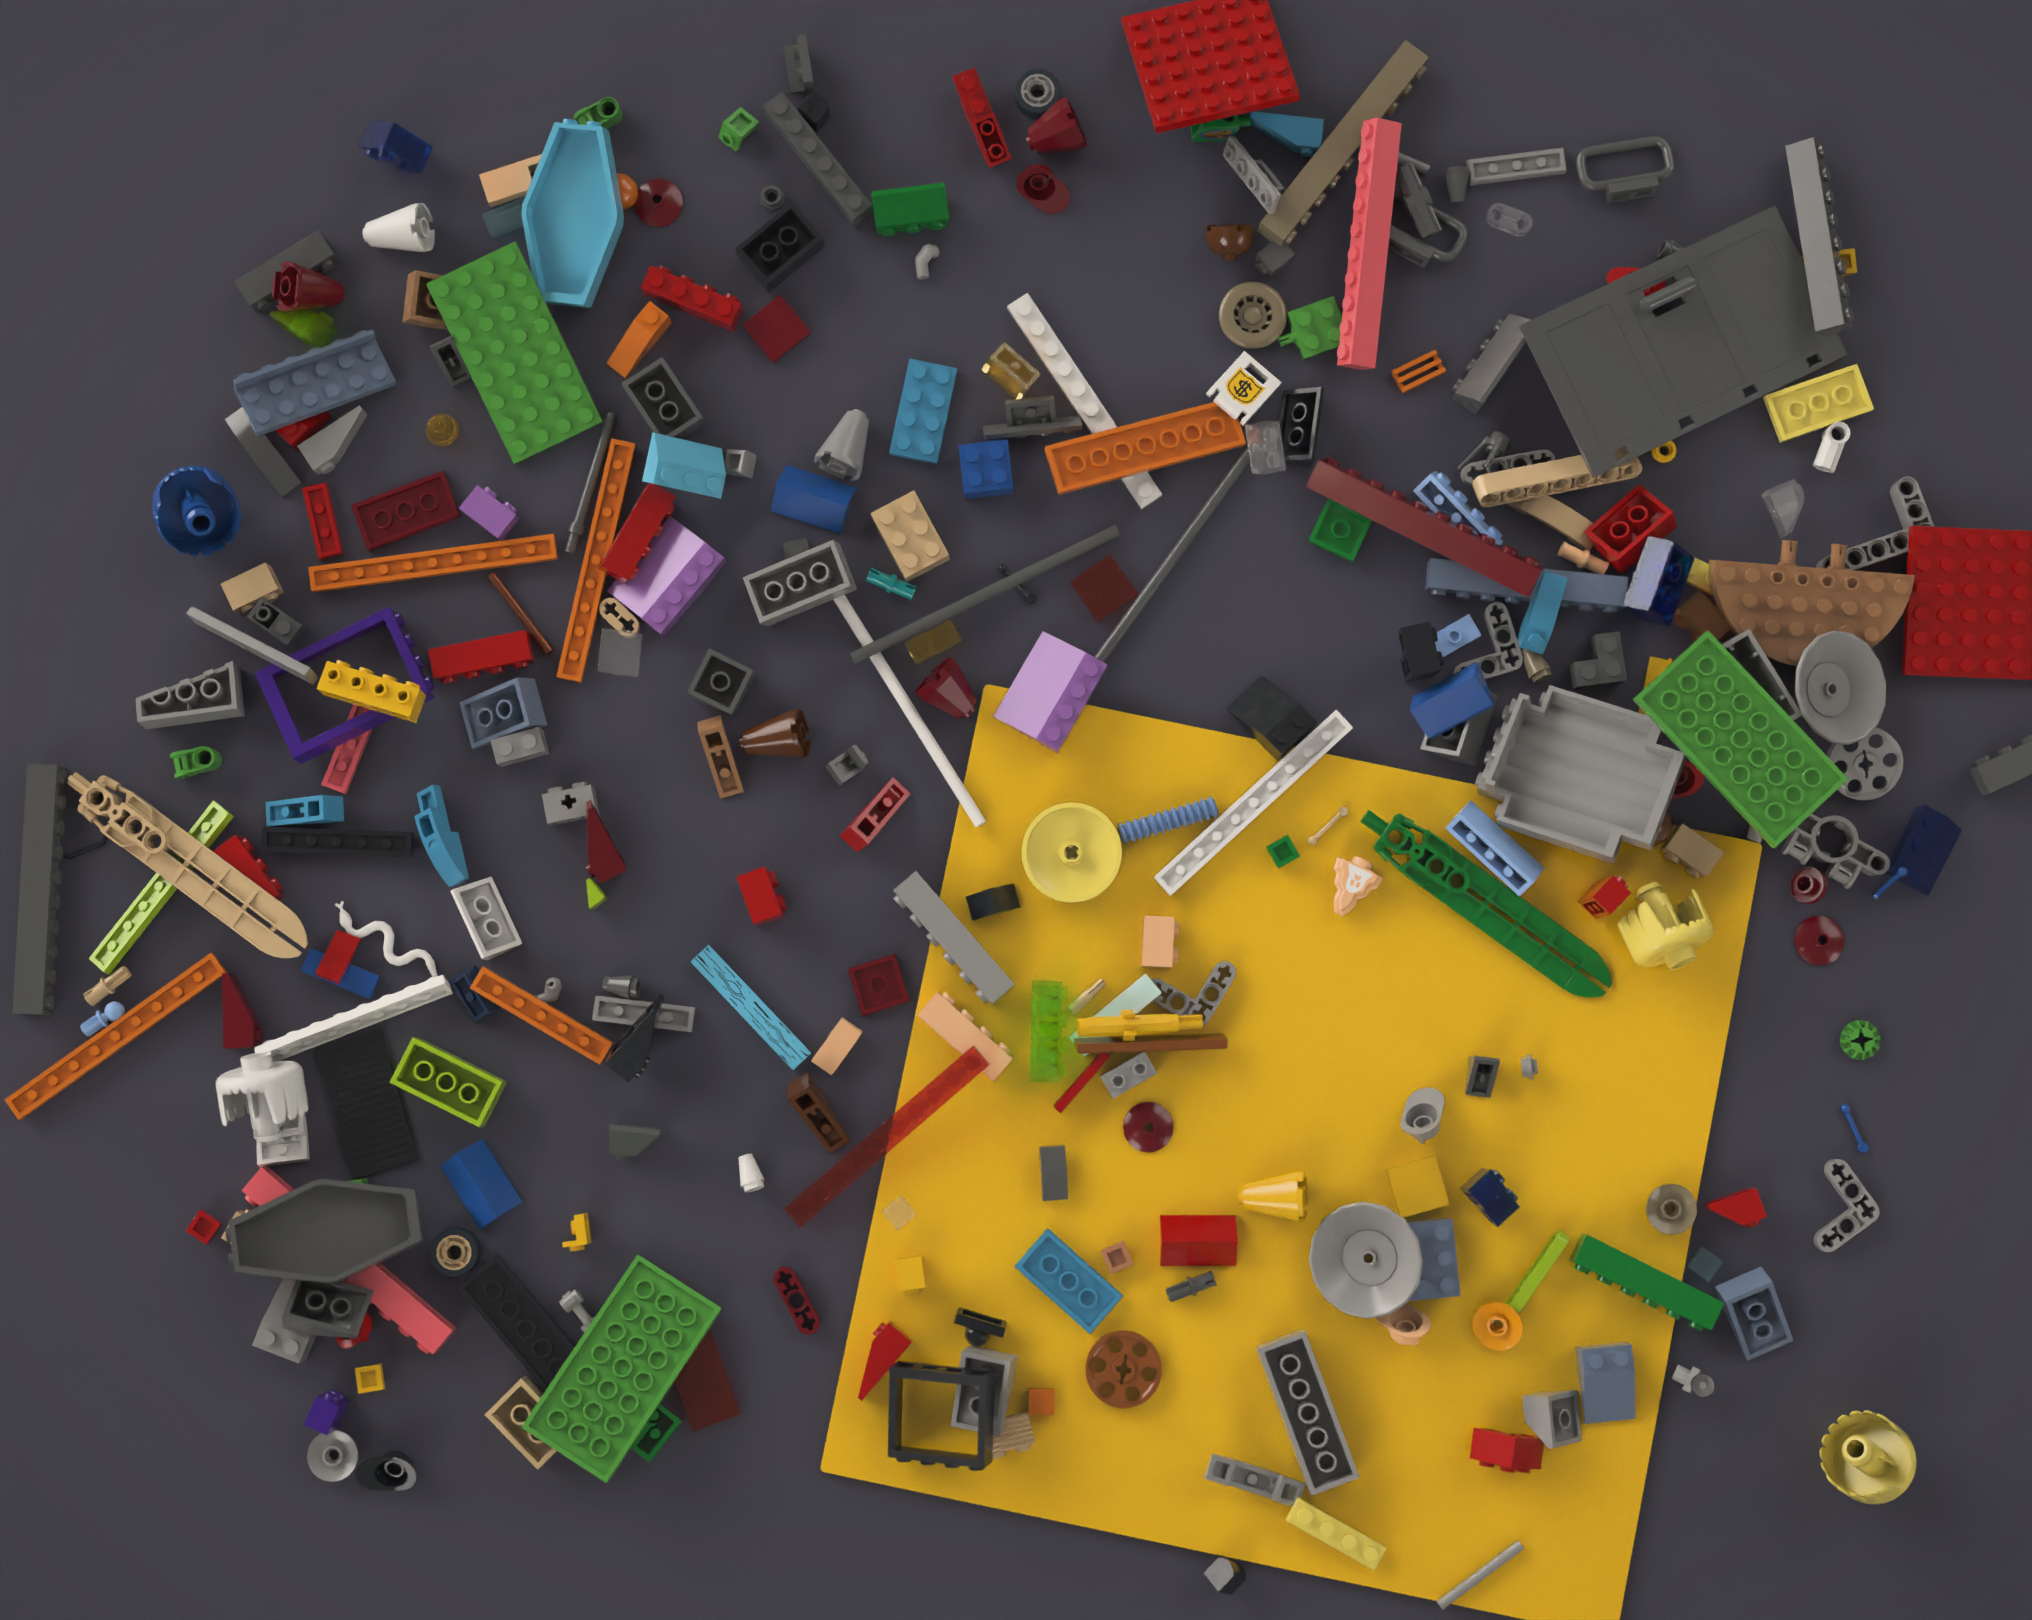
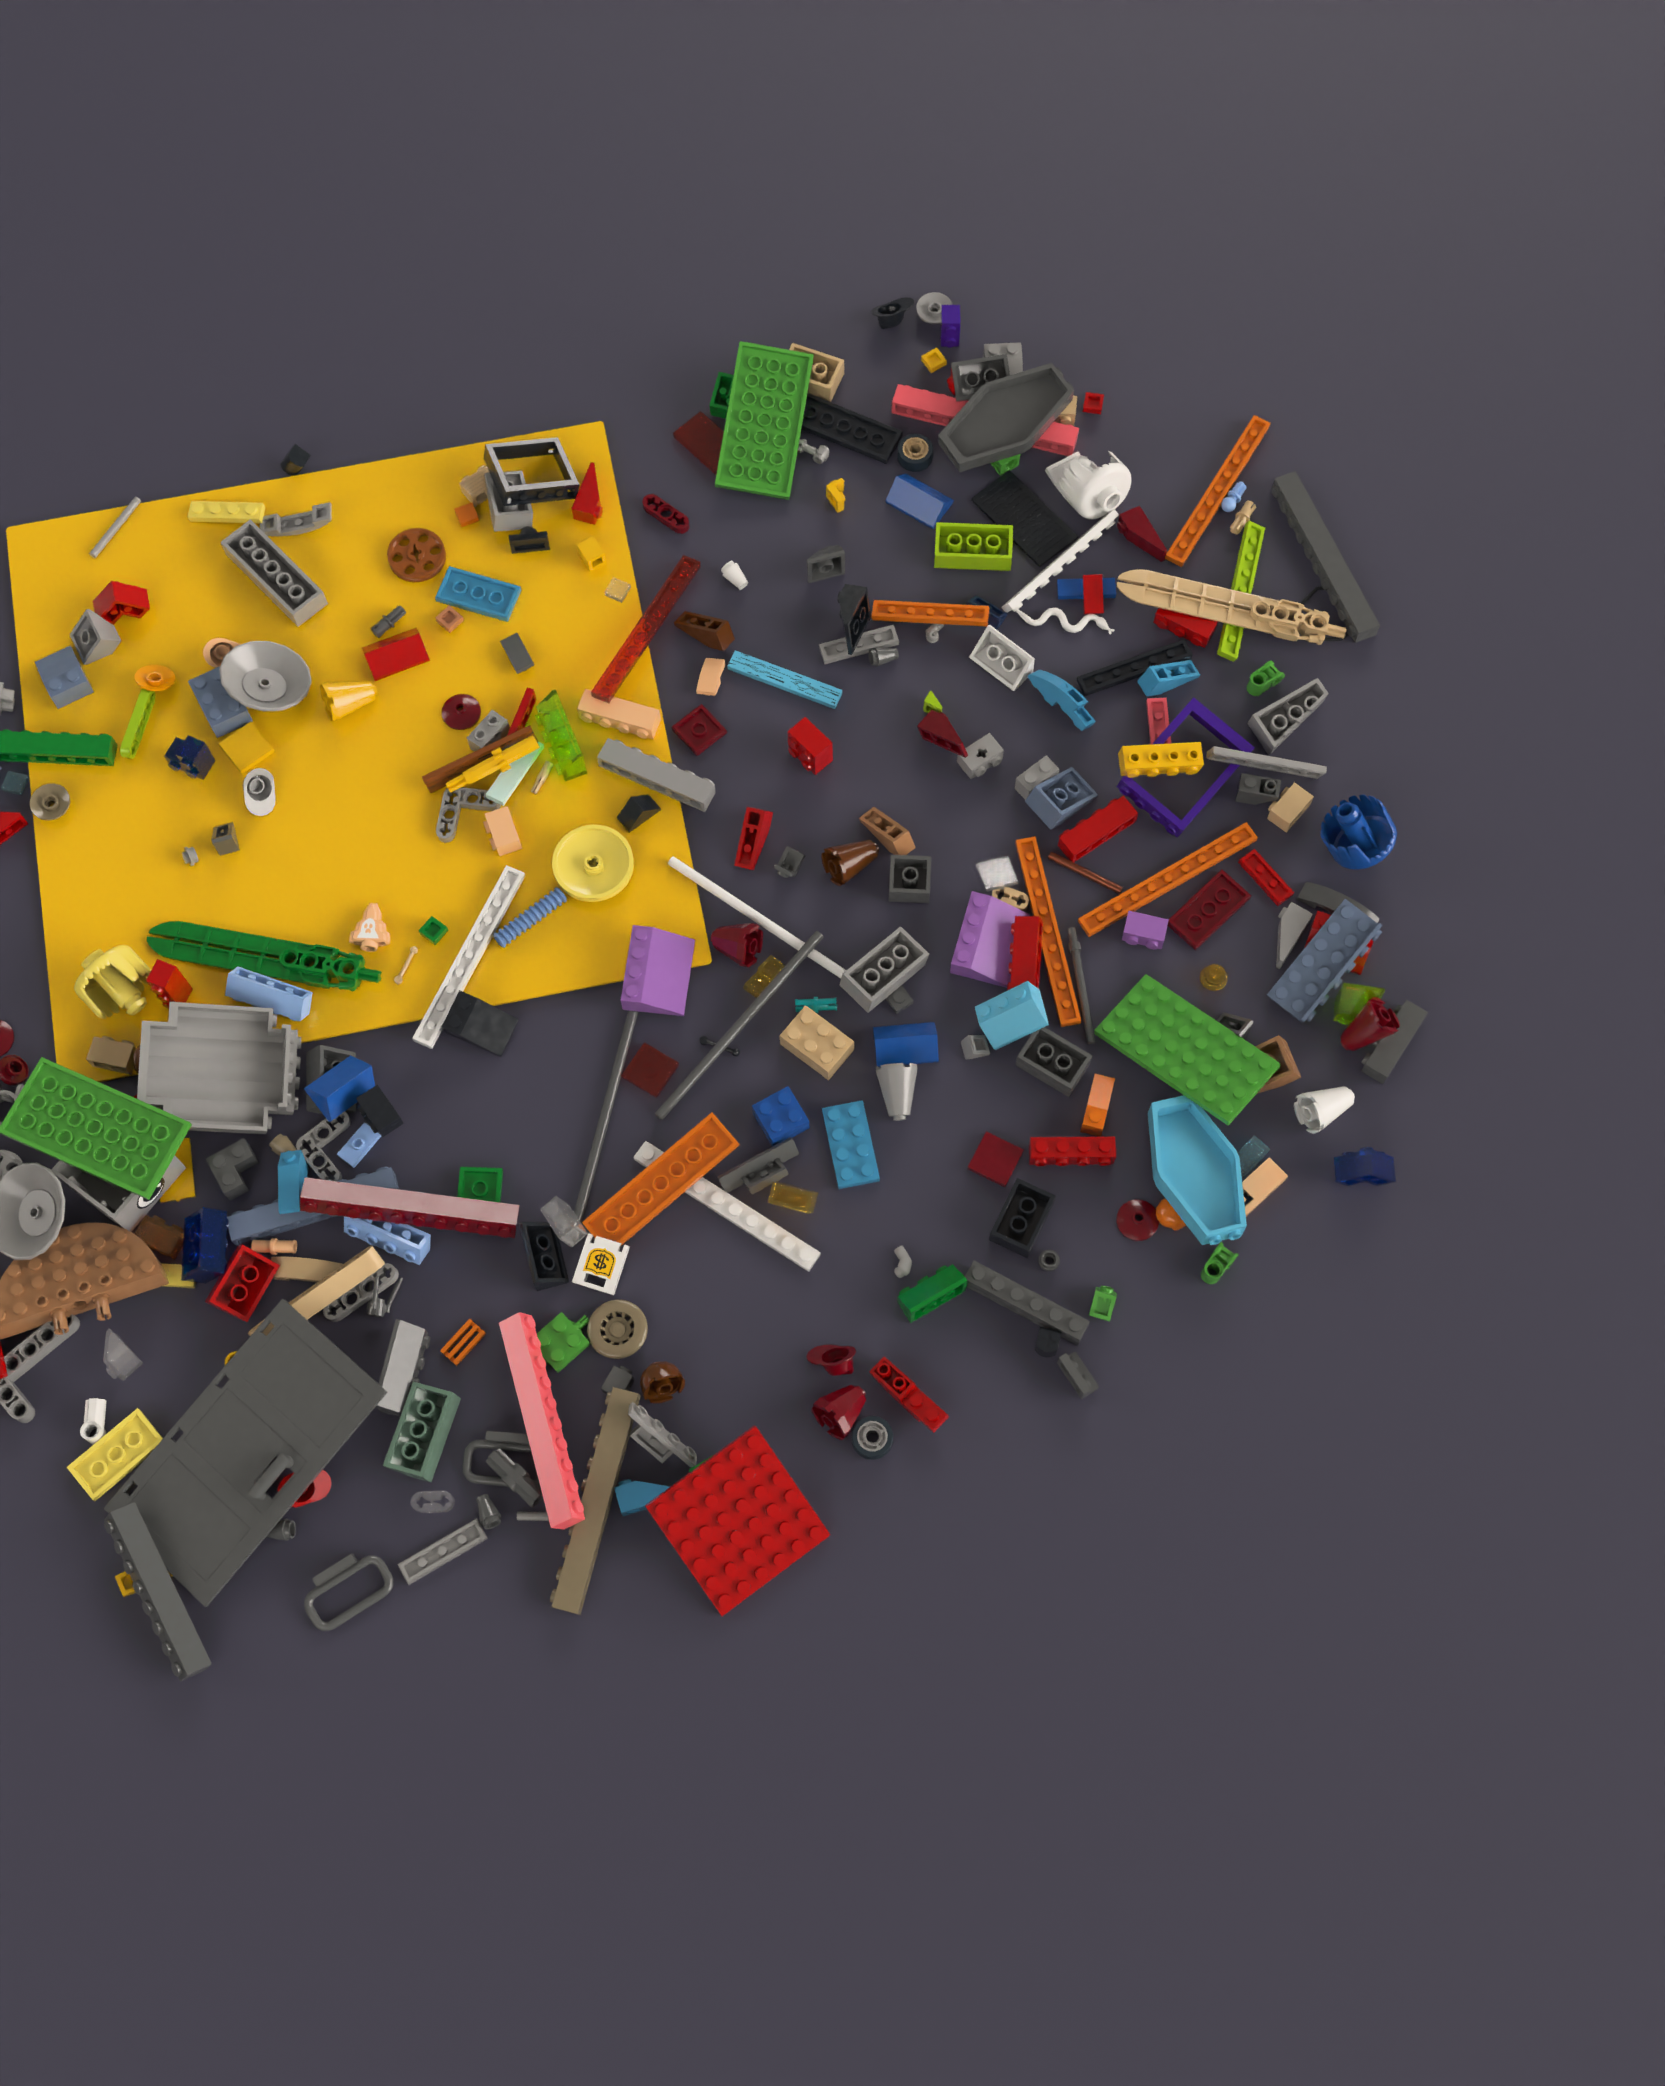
camera: 160 degrees right, 15 degrees down
(1496, 288) = (422, 1431): none -> sand green slope

